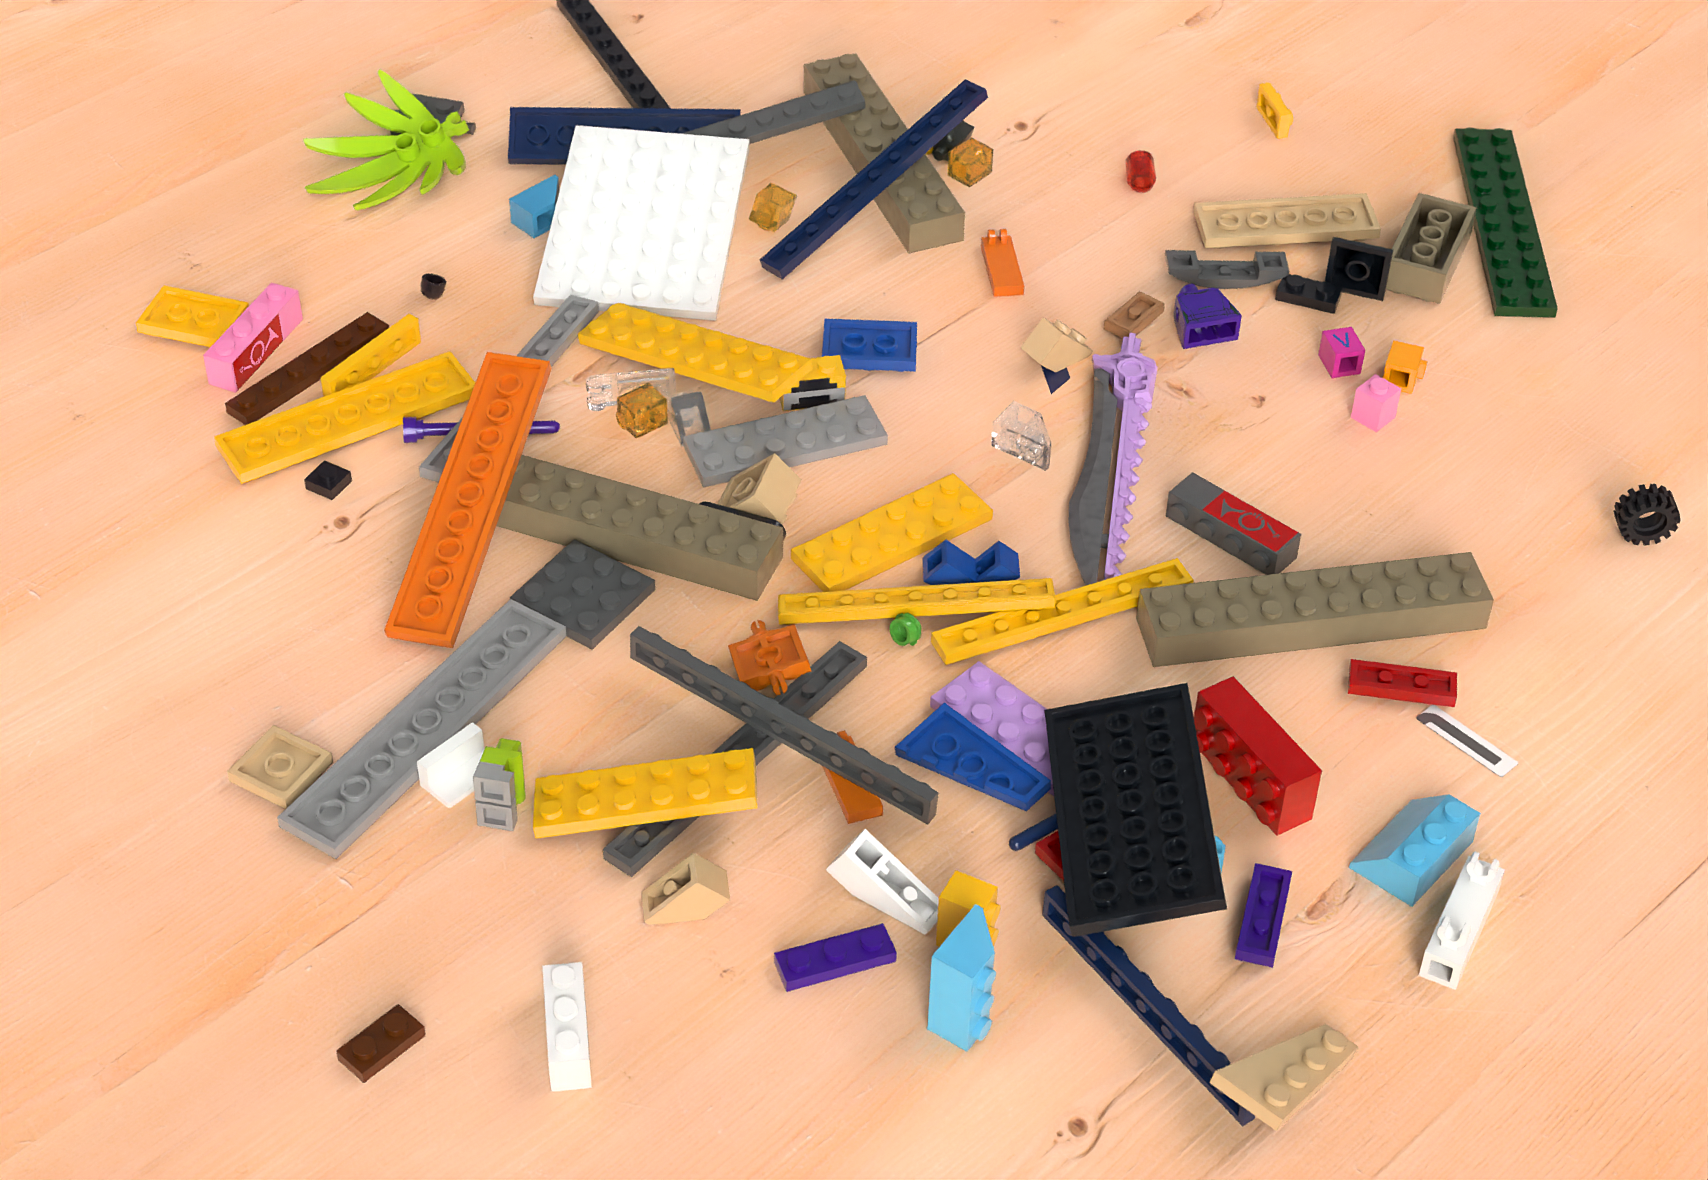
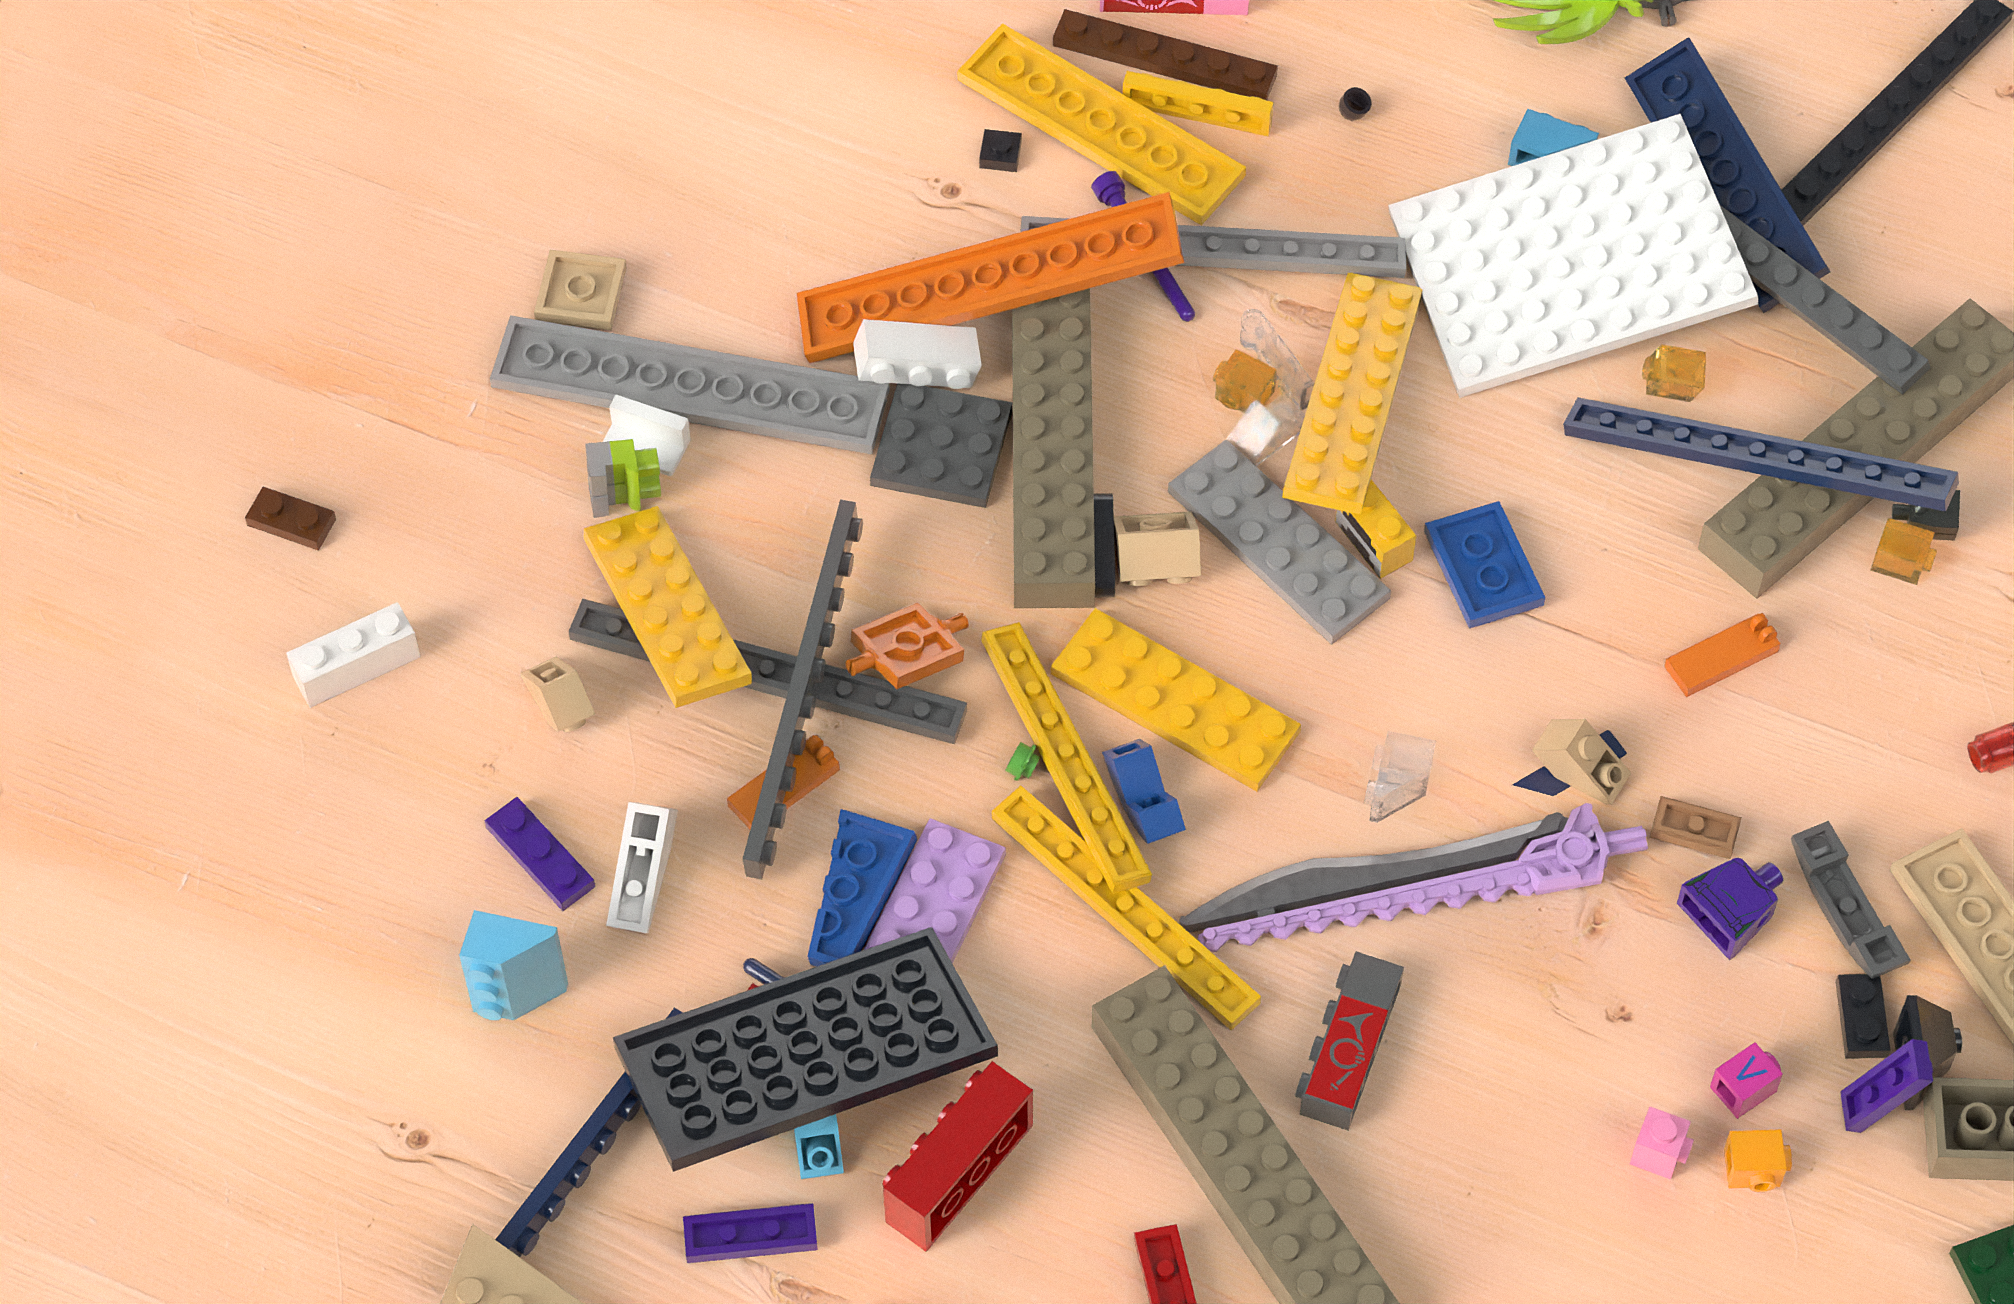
camera: 70 degrees right, 15 degrees up
(502, 569) = (917, 354): none -> white brick
(959, 898) = (611, 946): yellow brick -> none
(1386, 278) = (1886, 1085): none -> dark purple plate

